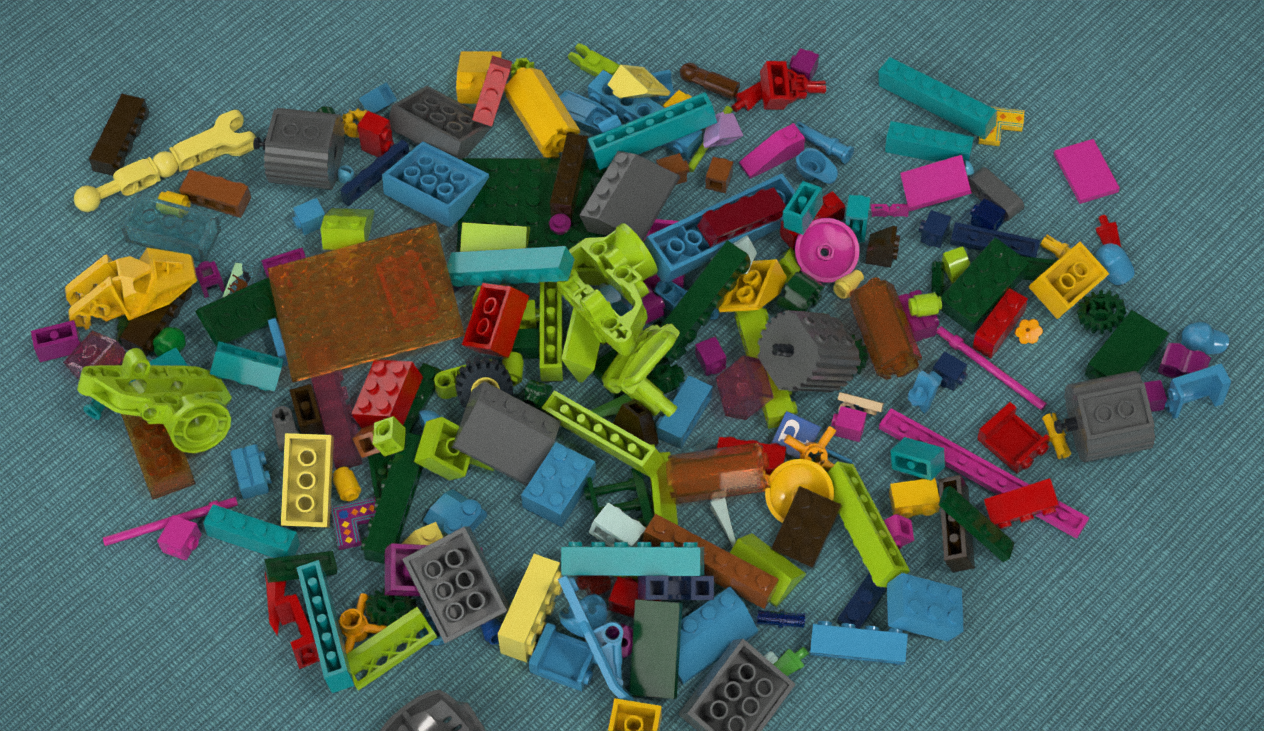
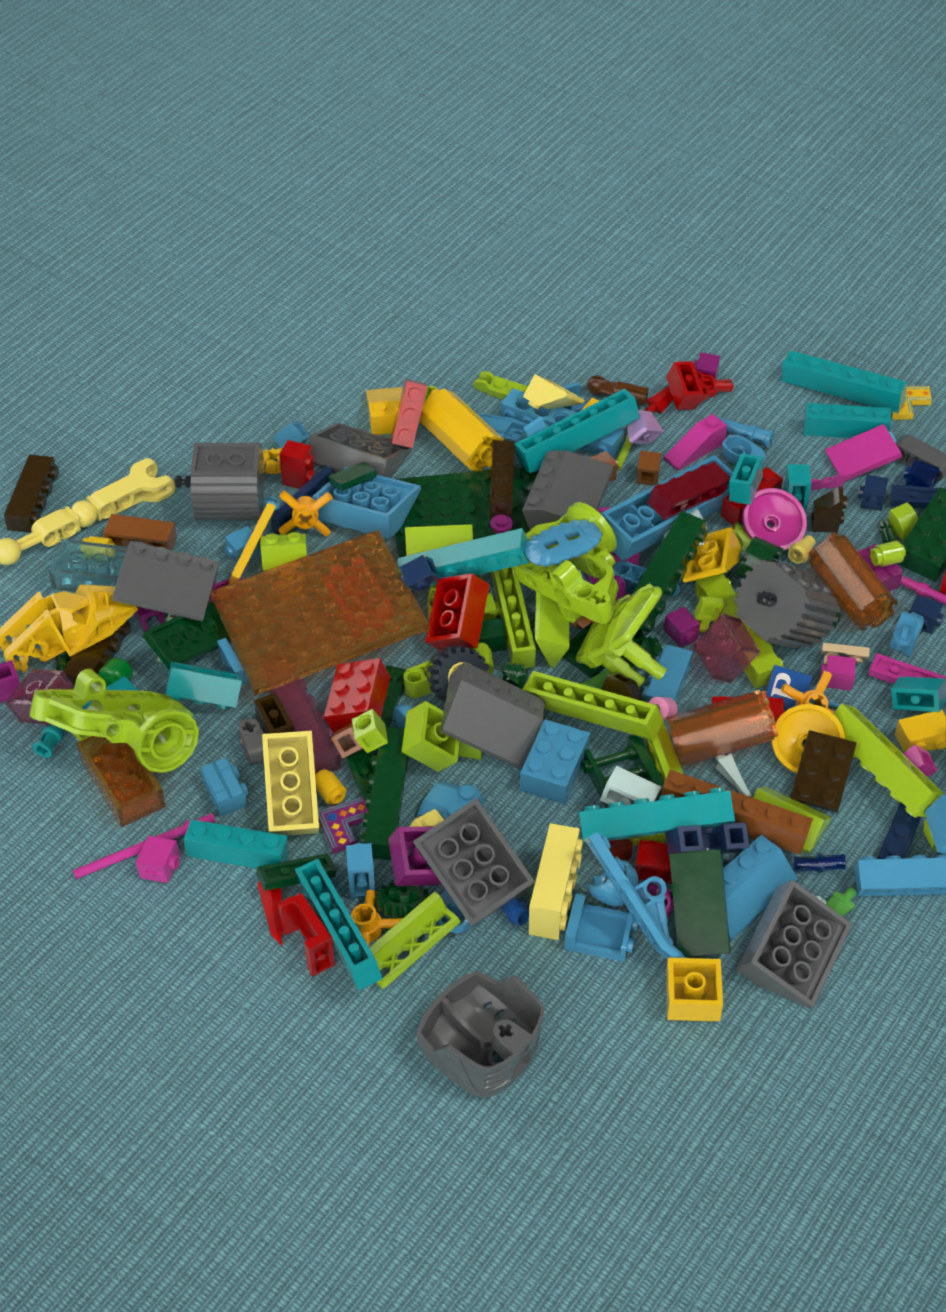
camera: 10 degrees left, 10 degrees down
(226, 255) = (166, 580): none -> dark grey slope
(316, 220) = (252, 543): none -> yellow tile
(356, 574) = (360, 869): none -> dark azure brick
(372, 191) = (305, 513): none -> light orange bar
(425, 155) = (352, 476): none -> dark green tile
(465, 276) = (419, 573): none -> dark blue brick
(603, 275) = (540, 556): none -> dark azure piece
(668, 444) = (666, 706): none -> bright pink brick
(736, 345) = (707, 610): none -> lime plate

